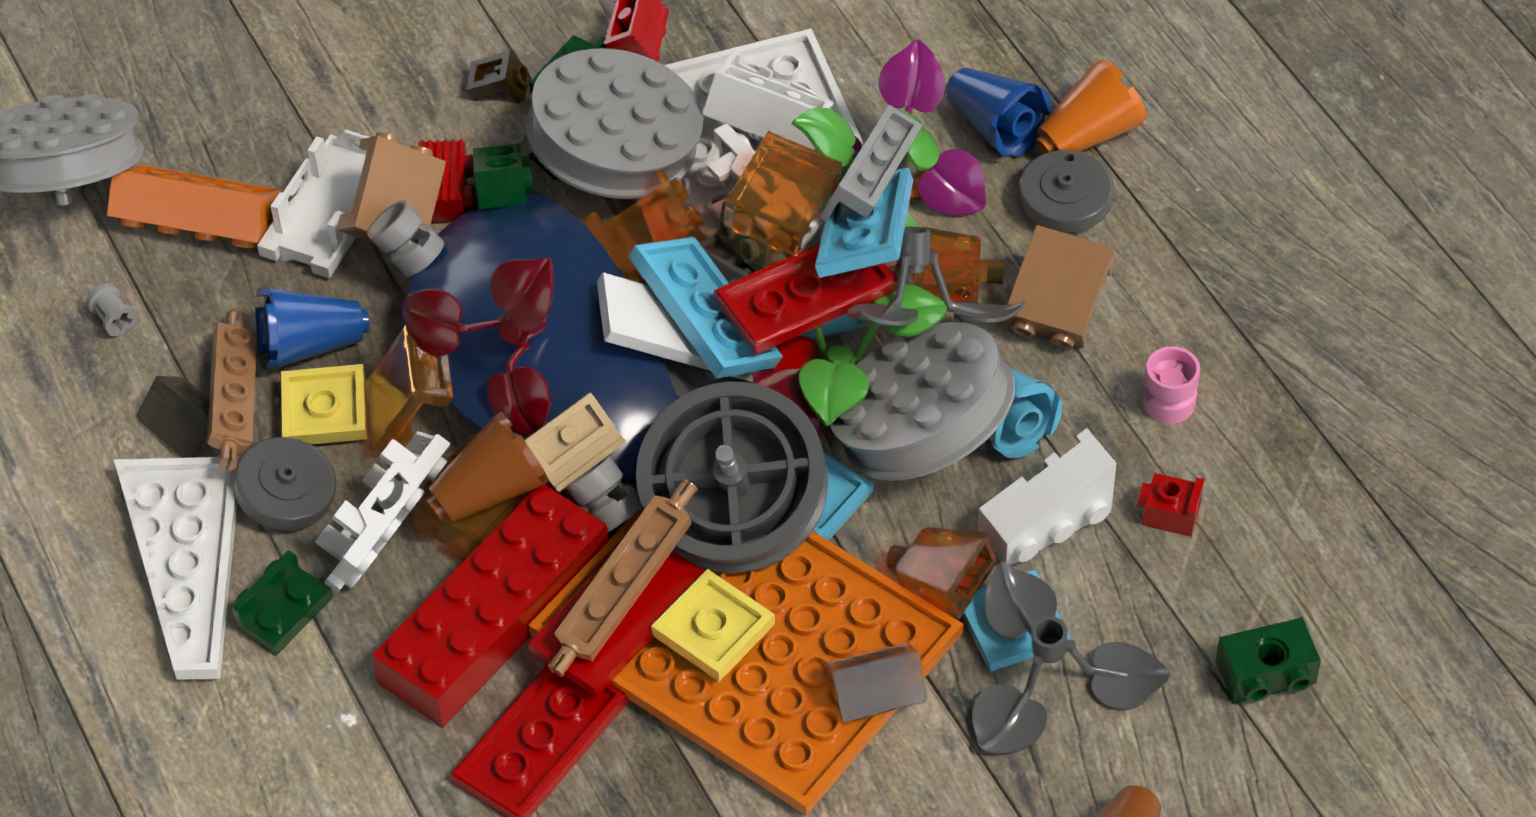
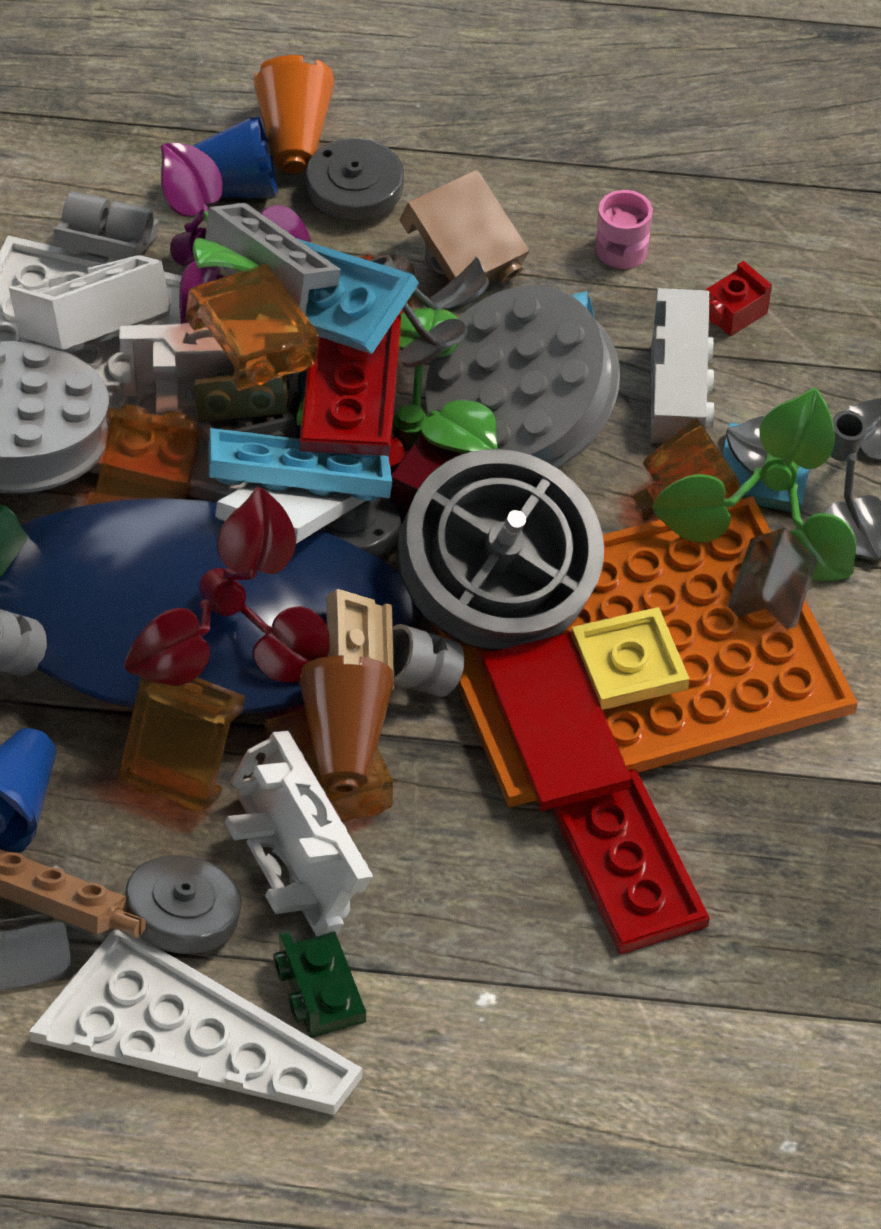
camera: 60 degrees left, 0 degrees up
(324, 404) = (109, 826): light yellow plate -> none
(486, 605) = (465, 816): red brick -> none
(623, 578) = (549, 684): medium nougat plate -> none
(855, 71) = (98, 228): none -> light grey plate
(982, 615) = (793, 436): none -> bright green plant

